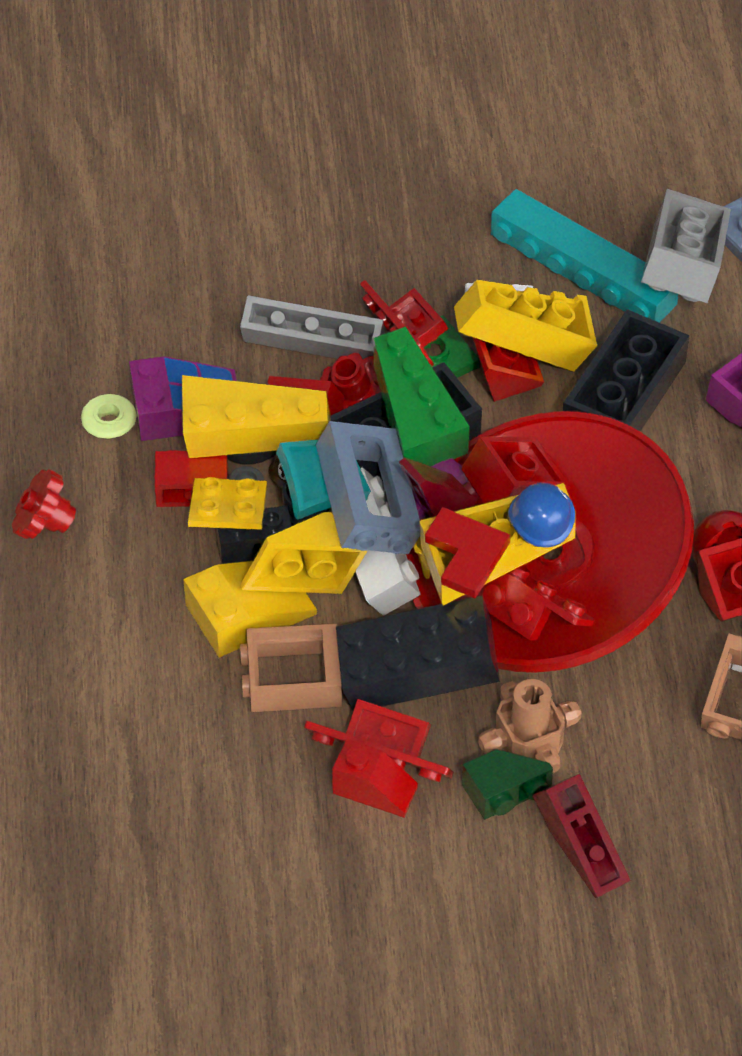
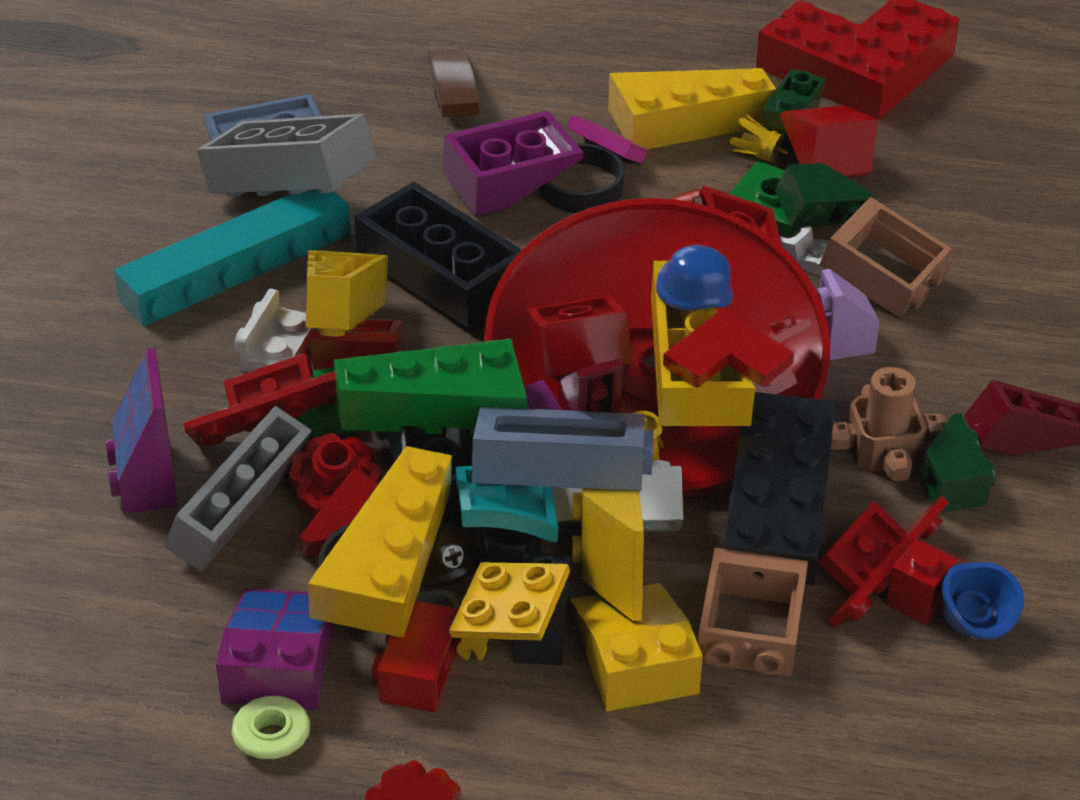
camera: 75 degrees left, 10 degrees down
(331, 263) = (142, 444): none -> magenta slope
(341, 807) = (981, 600): none -> blue helmet
(653, 671) = (849, 317): none -> lavender slope

